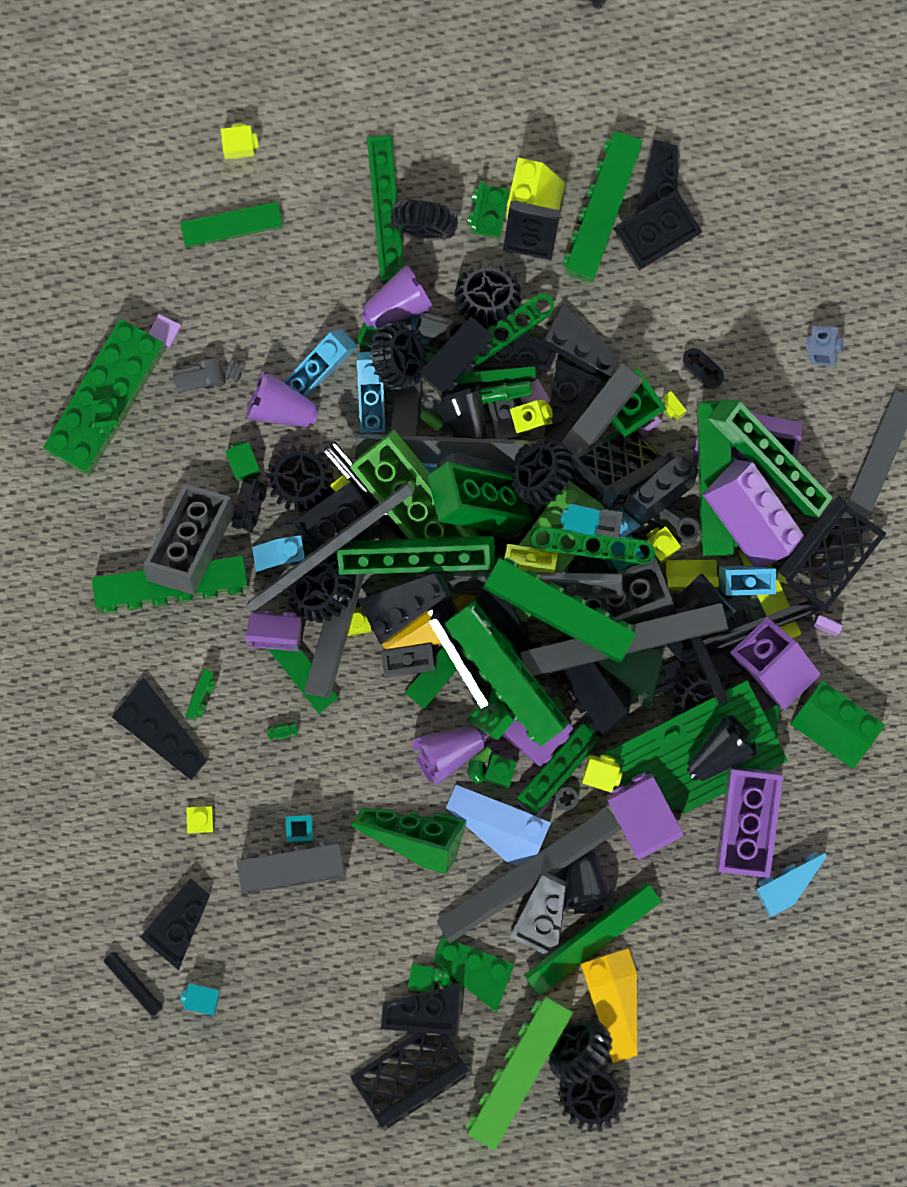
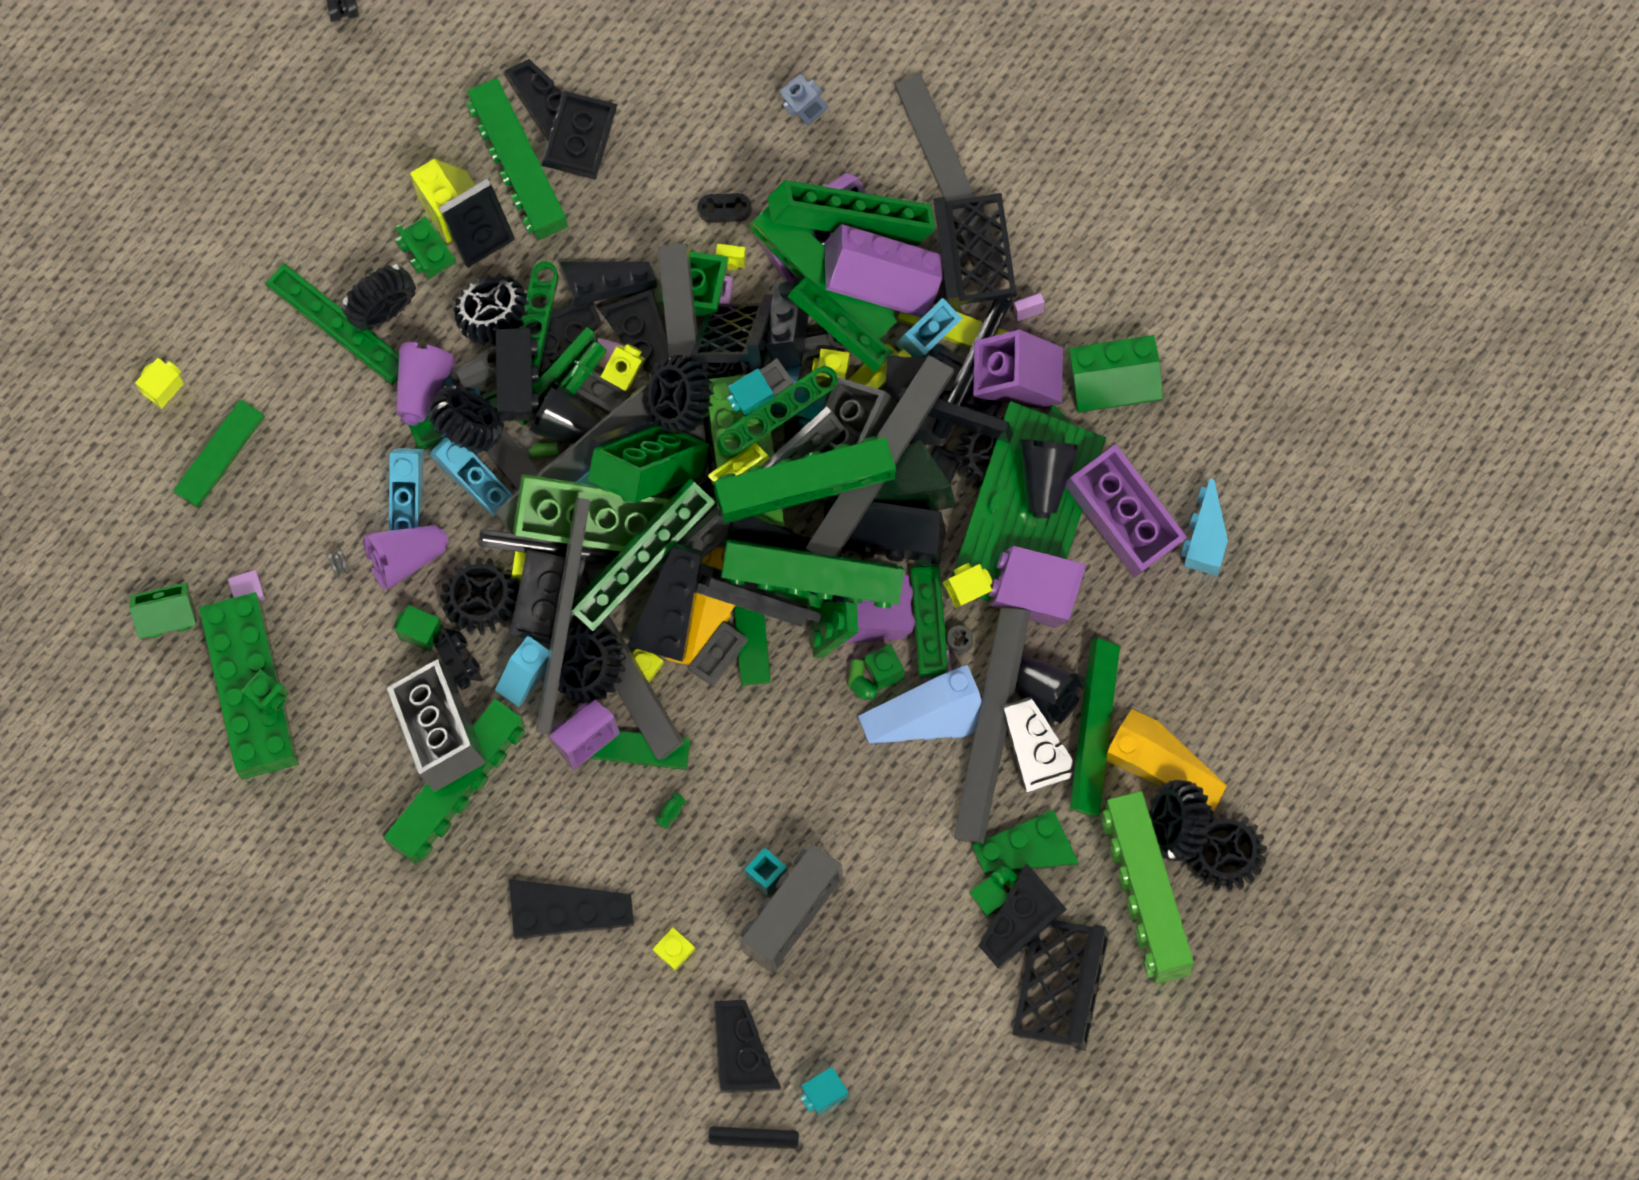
camera: 40 degrees left, 10 degrees down
(98, 297) = (163, 610): none -> green brick
(202, 376) = (316, 590): dark grey piece -> none
(205, 685) = (578, 857): green plate -> none
(423, 840) = (878, 783): green wedge -> none
(447, 751) = (823, 694): medium lavender cone -> none
(691, 523) = (840, 324): none -> green plate

